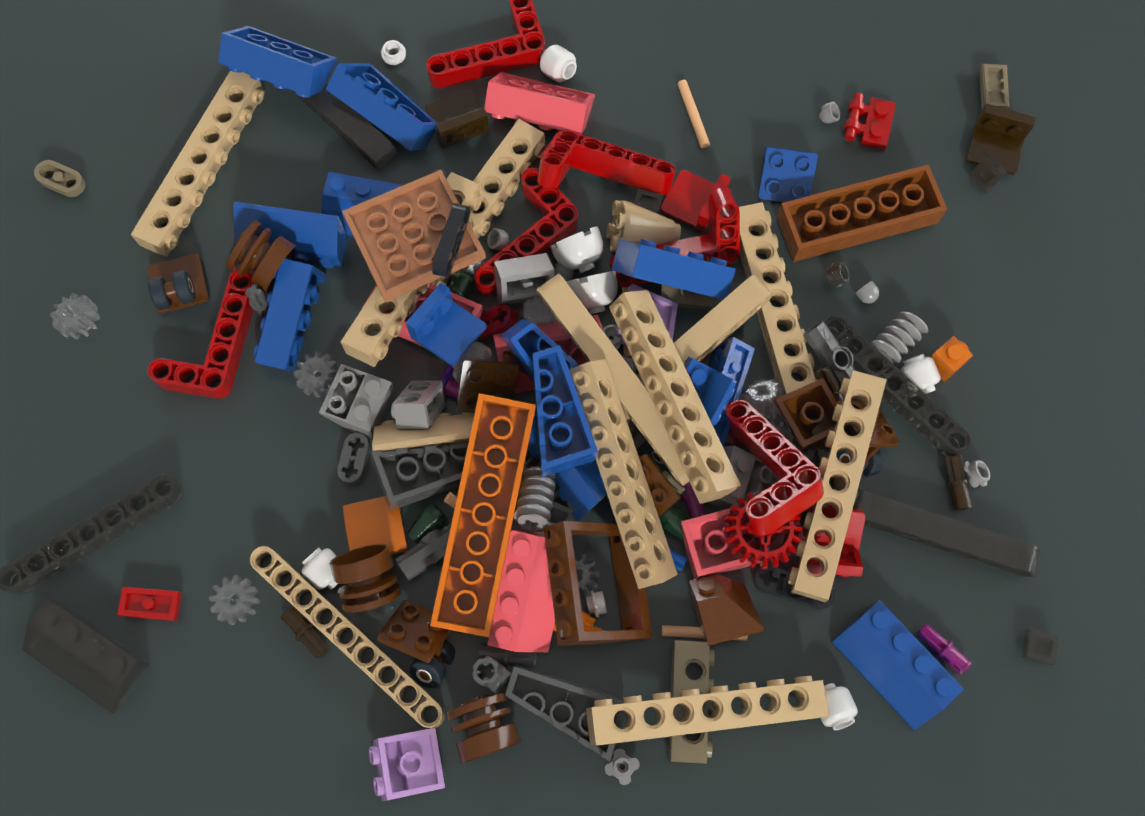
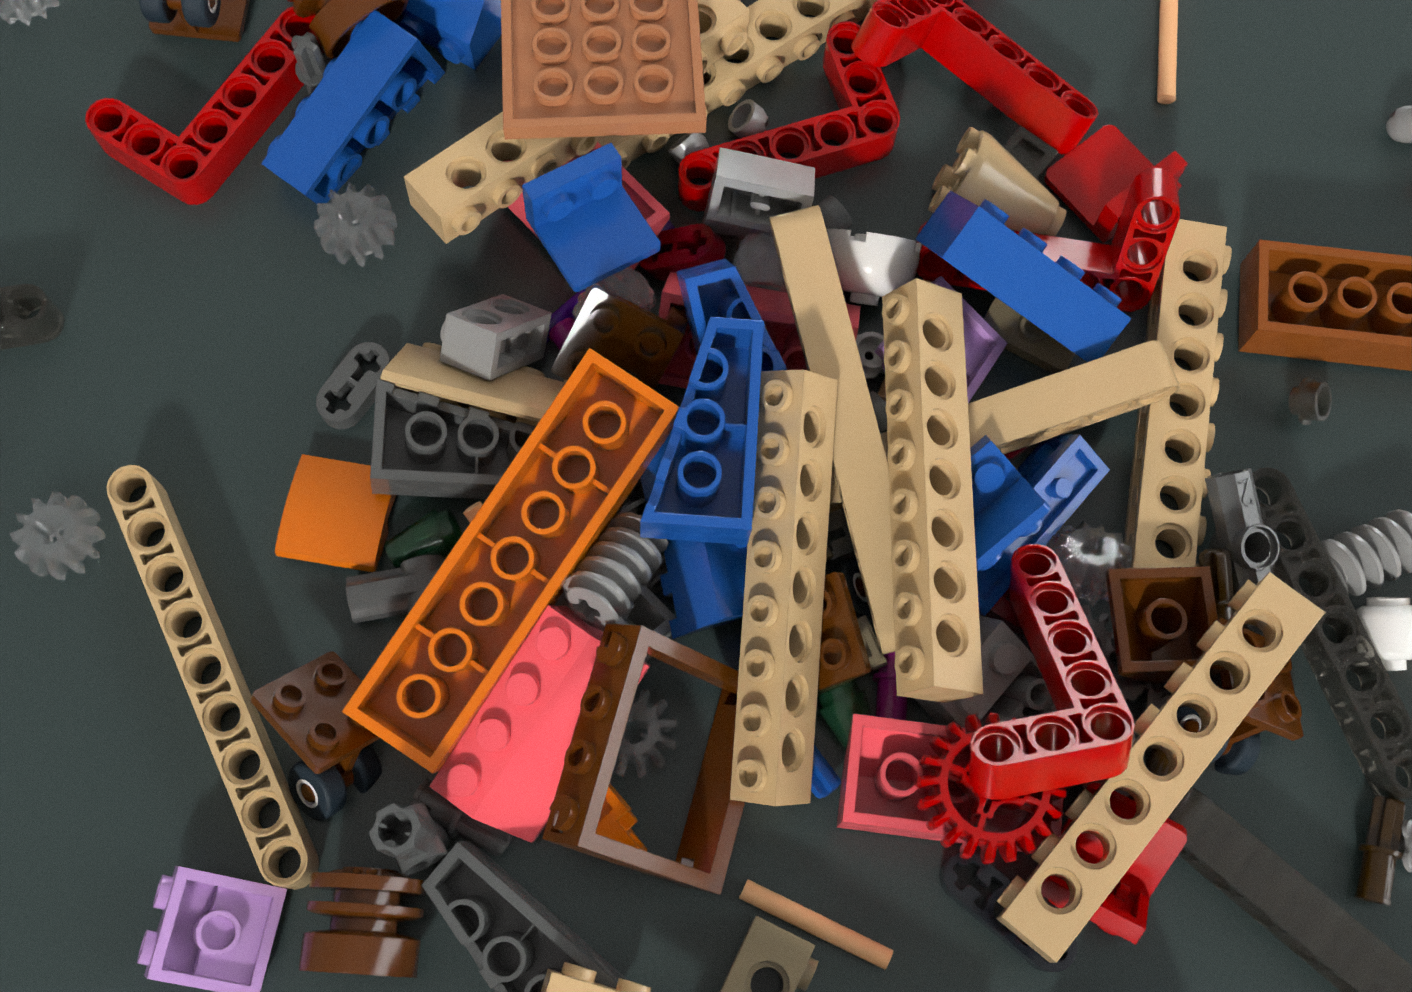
camera: 20 degrees right, 0 degrees up
(305, 632) = (147, 639): dark brown axle -> none
(318, 569) = (222, 544): white head -> none
(358, 400) = (399, 290): light grey slope -> none
(365, 578) = (278, 587): reddish brown wheel -> none
(451, 240) = (656, 76): black beam -> none
(462, 284) = (655, 171): clear green cone -> none
(579, 250) = (875, 187): white cylinder -> none
(596, 603) = (651, 794): white plate -> none
(723, 608) = (866, 897): reddish brown slope -> none
(787, 174) = (1289, 197): blue bracket -> none
(868, 293) = (1352, 454): light grey hinge -> none

